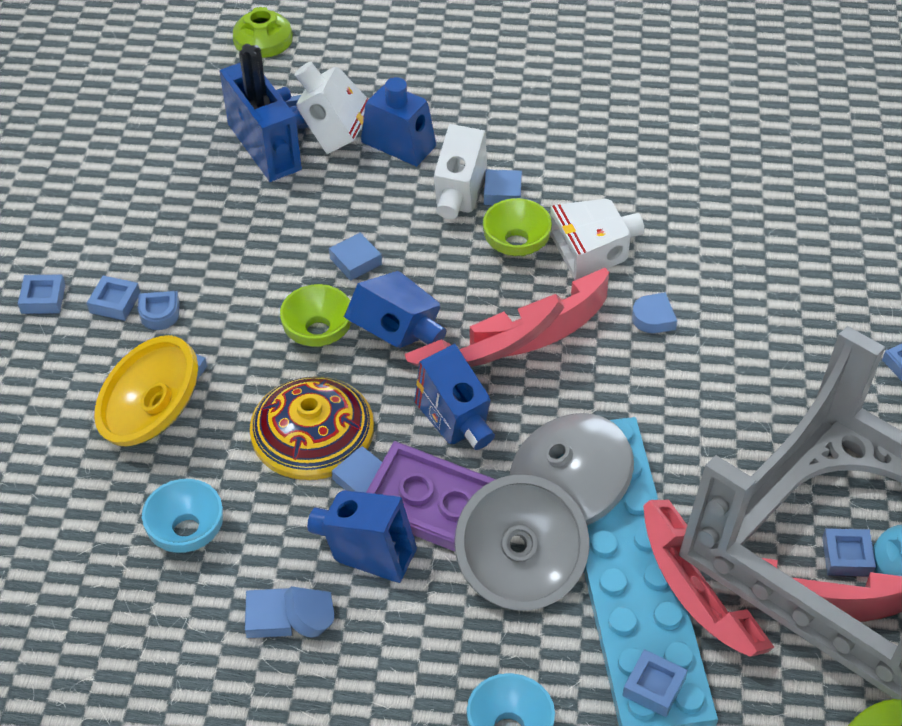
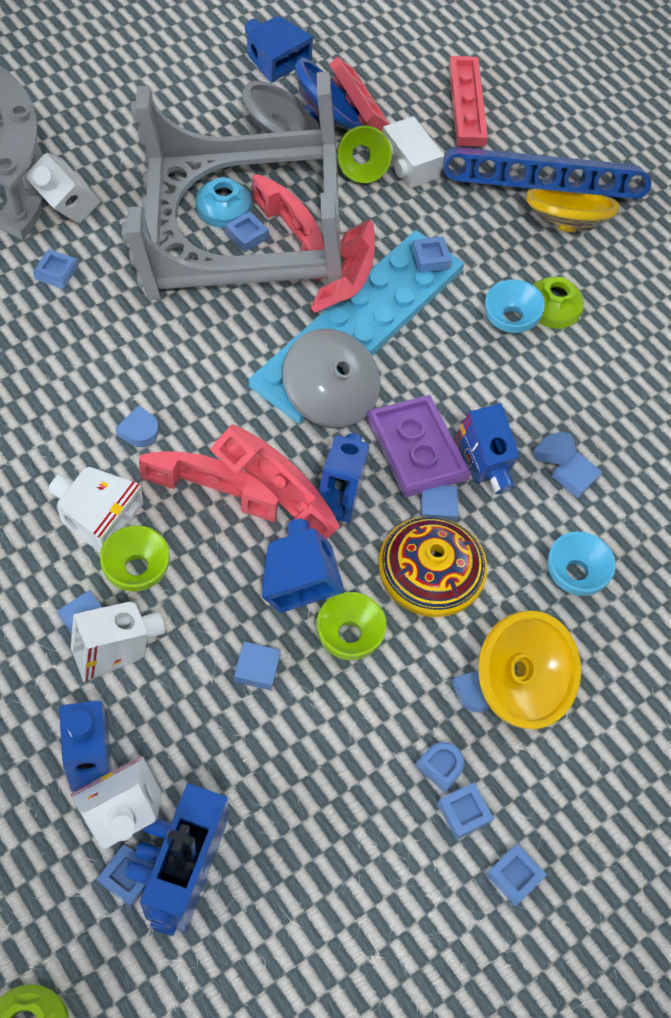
camera: 140 degrees left, 10 degrees up
(552, 534) = (411, 364): light grey dish -> none

